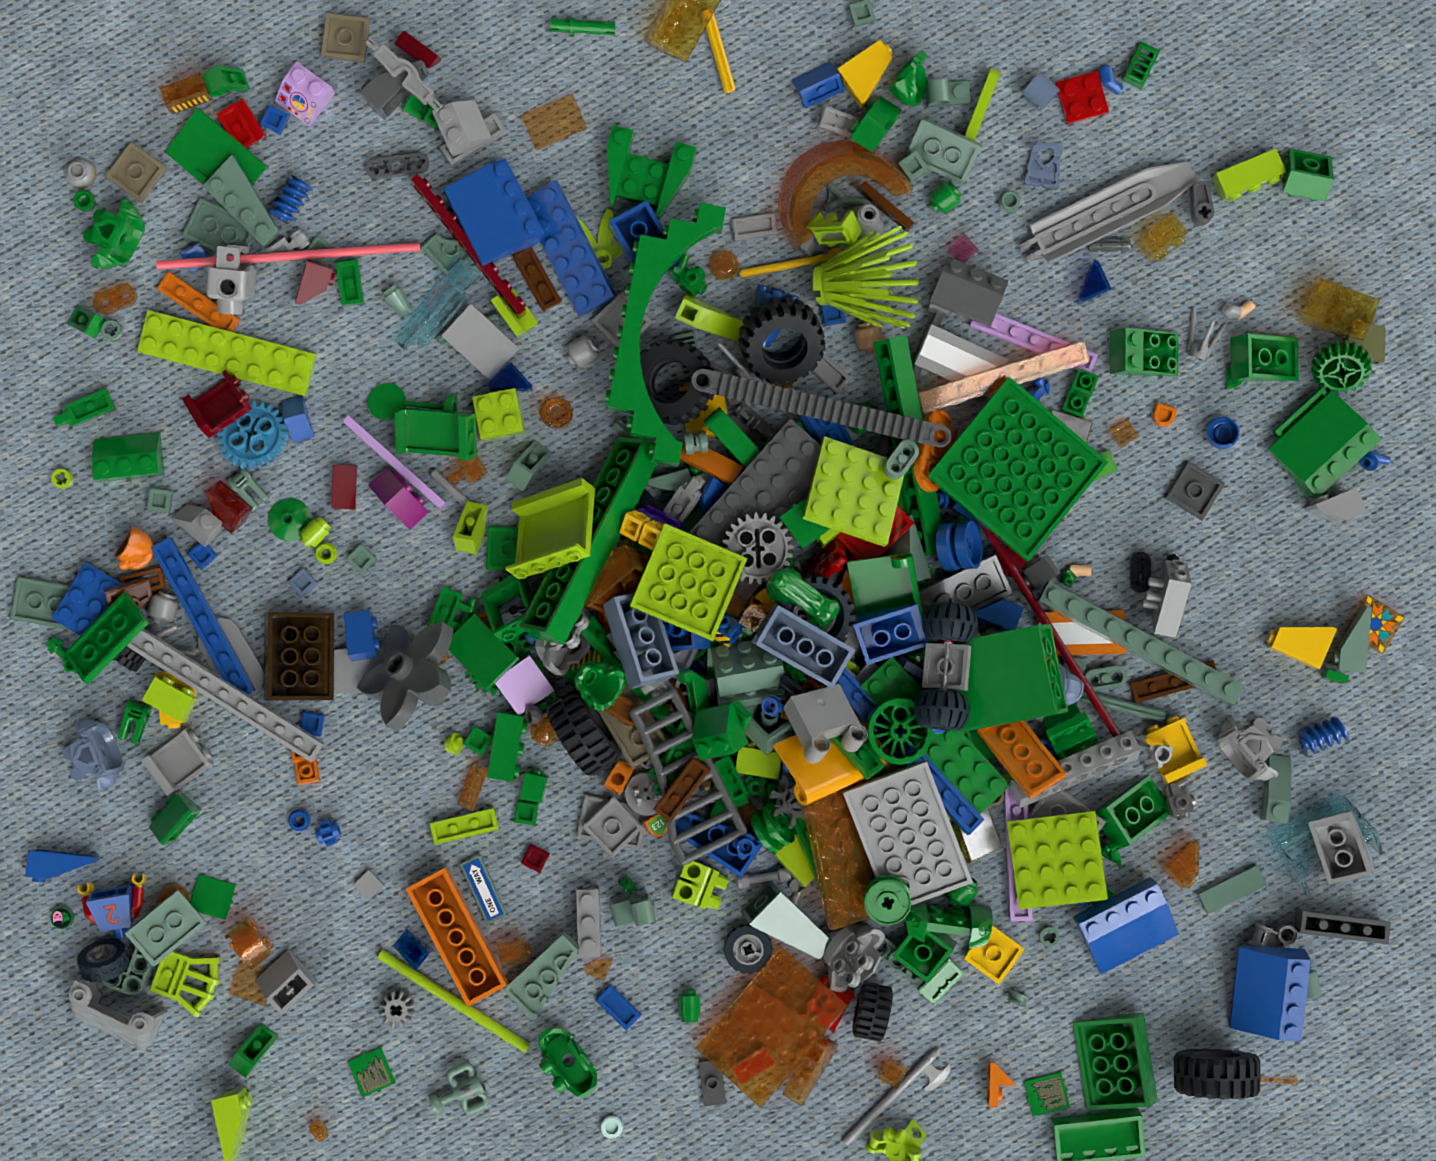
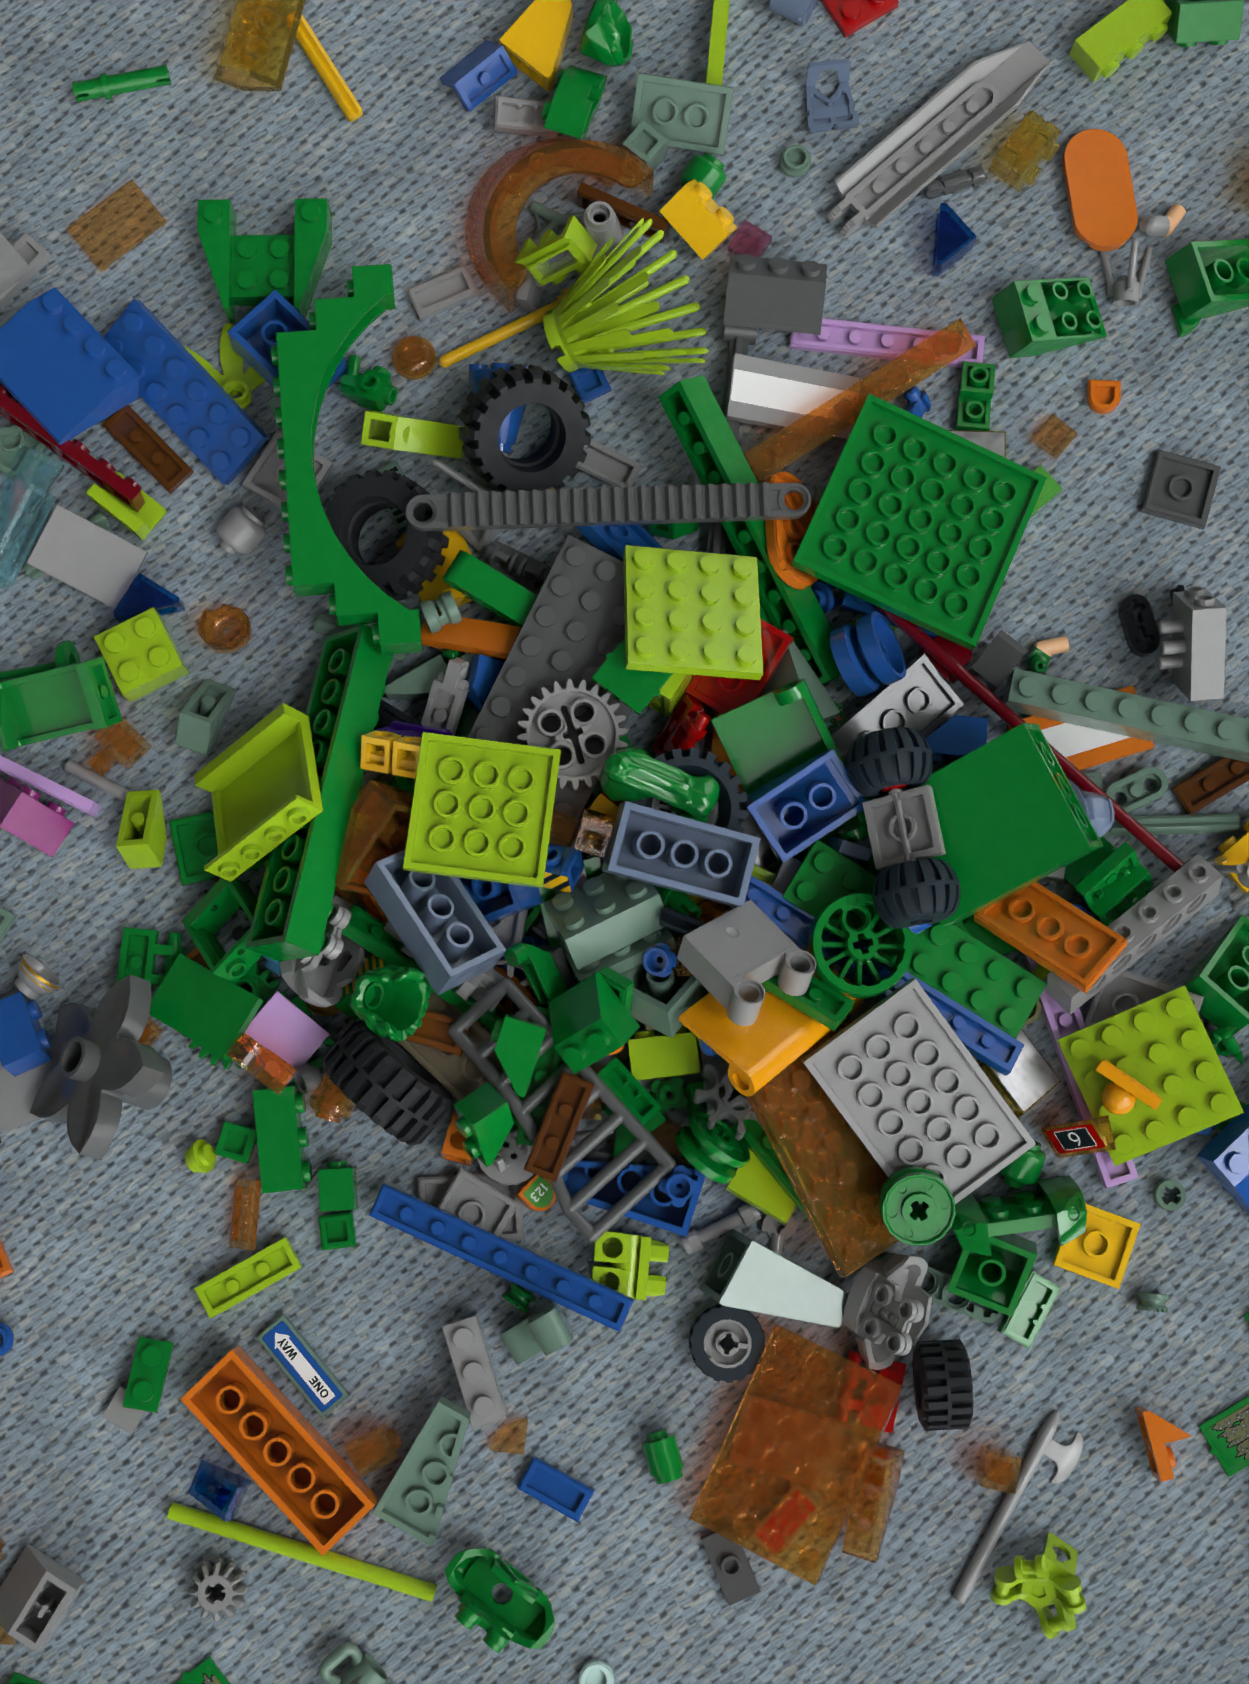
camera: 15 degrees left, 5 degrees down
(328, 832) = (42, 1345): blue gear -> none
(380, 603) = (35, 977): none -> light grey piece
(387, 868) = (148, 1375): none -> green plate
(508, 699) = (261, 1063): none -> clear orange leg
(535, 858) = (369, 1296): dark red tile -> none
(623, 858) = (501, 1257): none -> blue tile
(636, 774) = (484, 1123): none -> green slope
(670, 736) = (518, 1049): none -> green slope
(866, 334) = (644, 397): medium nougat head -> none
(901, 461) = (746, 550): sand green plate -> none
(934, 226) = (699, 218): none -> yellow brick
(942, 93) = (659, 40): sand green plate -> none
(1003, 885) = (1080, 1136): none -> slope
(1037, 865) = (1121, 1094): none -> light orange tile
(1201, 200) = (1066, 90): dark grey piece -> none
(1203, 276) = (1099, 189): none -> orange tile
(1227, 435) = (1202, 394): blue hair -> none

